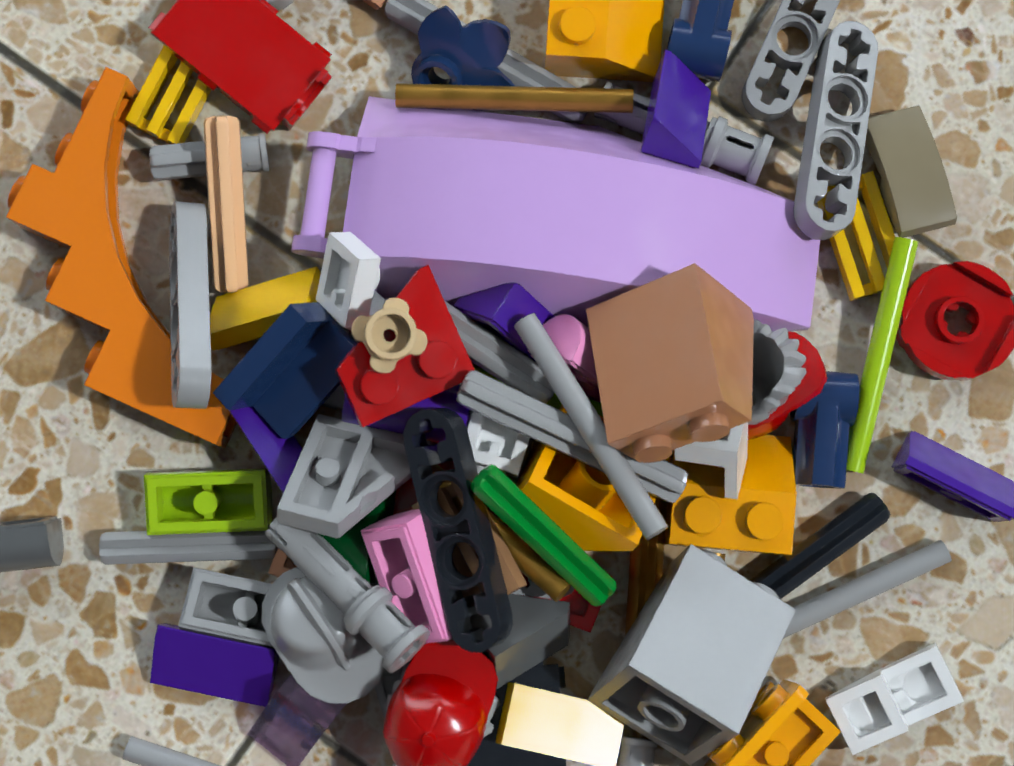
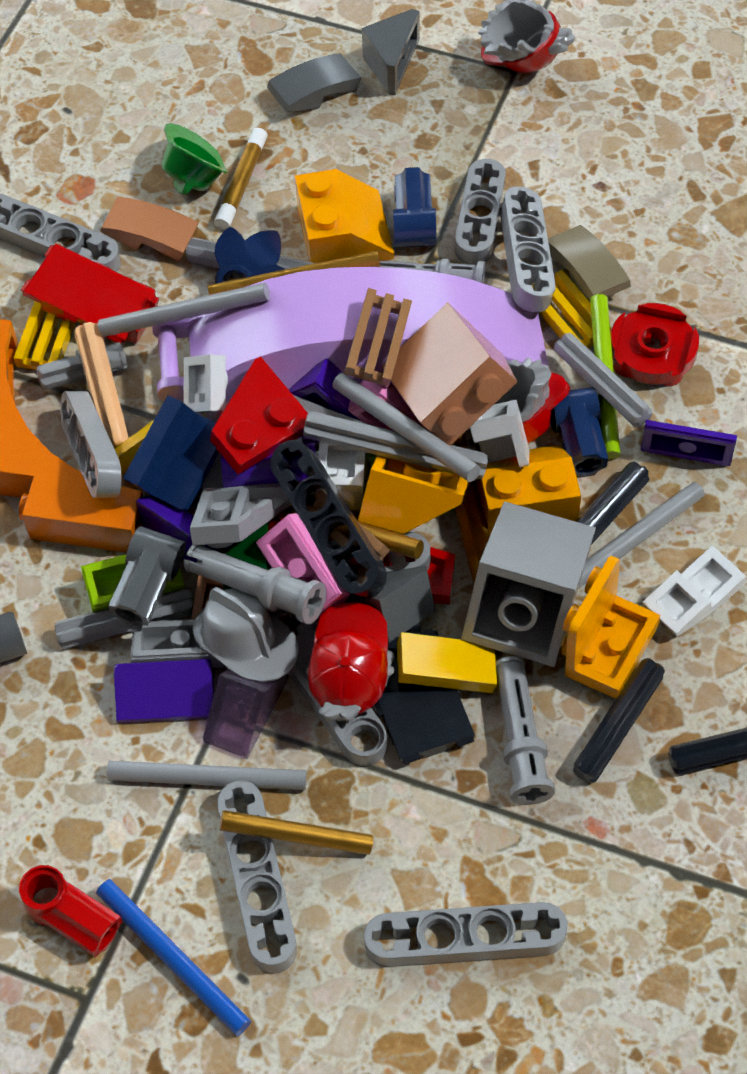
camera: 10 degrees left, 25 degrees down
(225, 512) = (149, 565): none -> dark grey piece
(351, 144) = (184, 309): none -> light grey bar
(392, 317) = (247, 385): tan plate -> none
(543, 535) = (392, 509): green axle -> none
(615, 235) = (386, 304): none -> medium nougat tile
(676, 114) = (409, 252): dark purple slope -> none
(873, 374) = (603, 380): none -> light grey axle

